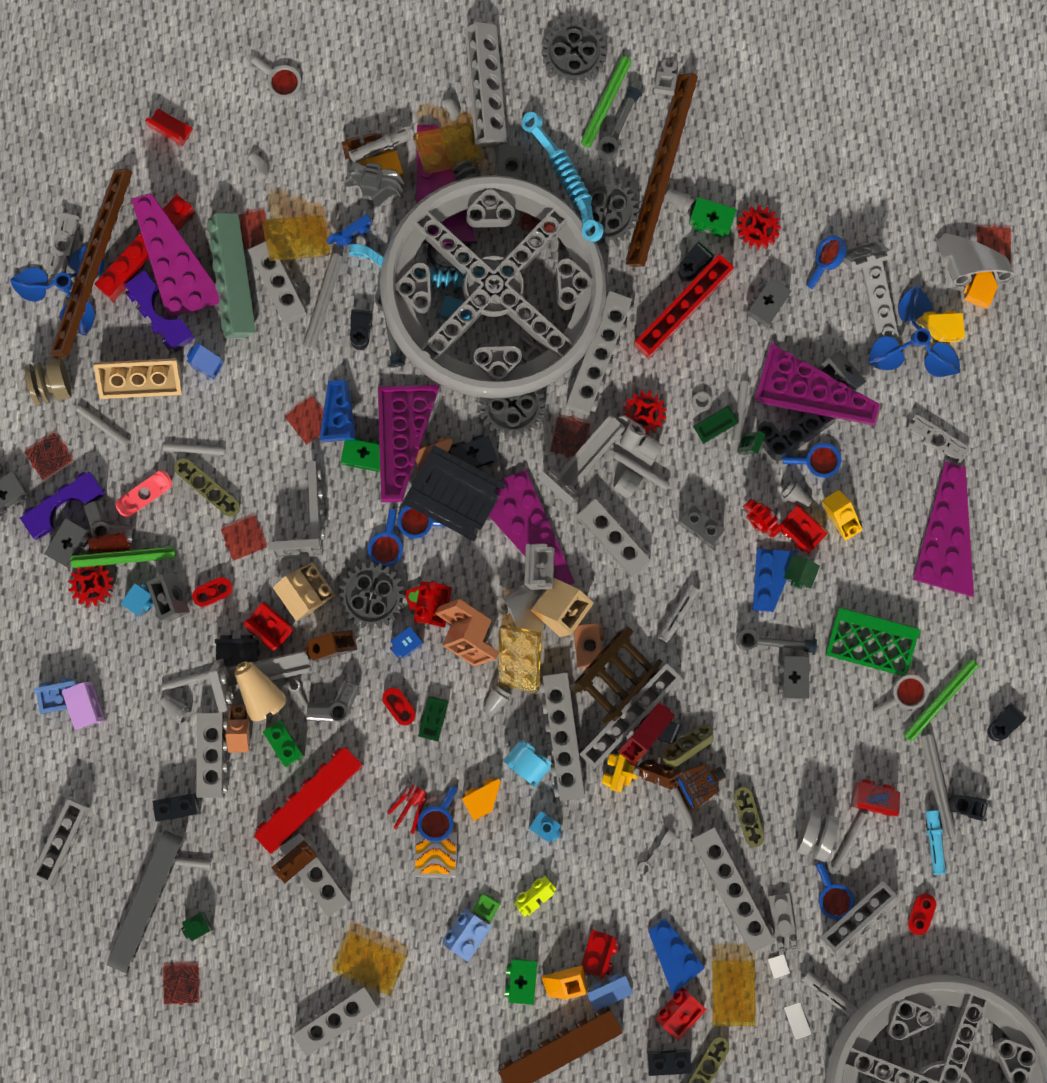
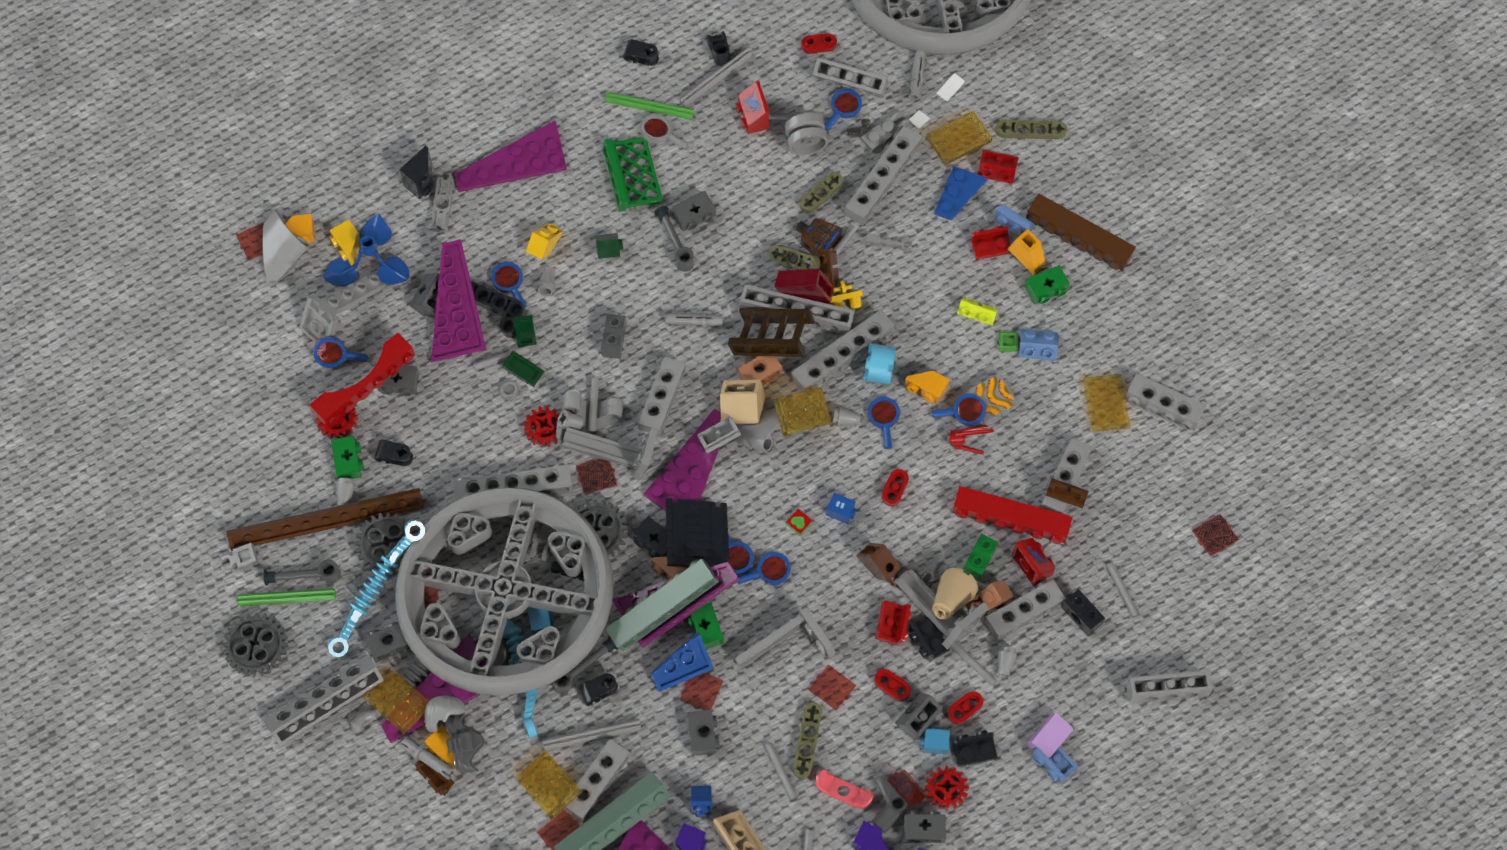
camera: 120 degrees left, 15 degrees down
(111, 631) = (974, 748): none -> black bracket
(122, 557) = (908, 773): bright green axle -> none
(145, 901) = (1171, 594): dark grey beam -> none
(151, 646) = (964, 708): none -> red plate
(196, 926) = (1164, 544): dark green brick -> none
(250, 791) = (1033, 561): none -> red slope
(259, 388) = (703, 720): none -> dark grey brick
(304, 591) = (848, 610): tan slope -> none
(324, 711) = (916, 531): dark grey piece -> none
(346, 236) = (524, 745): blue hinge -> none
(390, 600) = (823, 572): dark grey gear -> none
(398, 420) = (662, 604): none -> sand green brick
(412, 176) = (440, 709): none -> light grey piece
(430, 597) = (798, 505): red bracket -> none
(433, 718) = (888, 456): dark green plate -> none
(467, 632) = (805, 460): nougat bracket -> none
(479, 741) = (884, 413): none -> piece
(546, 827) = (920, 329): dark azure brick -> none
(669, 1062) = (1038, 154): black brick -> none
(684, 306) = (437, 439): red brick -> none
(762, 518) = (582, 292): red gear -> none
(769, 577) = (624, 269): blue wing -> none
(789, 304) = (333, 405): none -> red arch
(796, 898) = (861, 130): none -> clear smoke arm
(803, 529) = (572, 263): red bracket -> none
(935, 839) = (753, 61): medium azure pin -> none
(979, 429) = (418, 173): none -> black slope

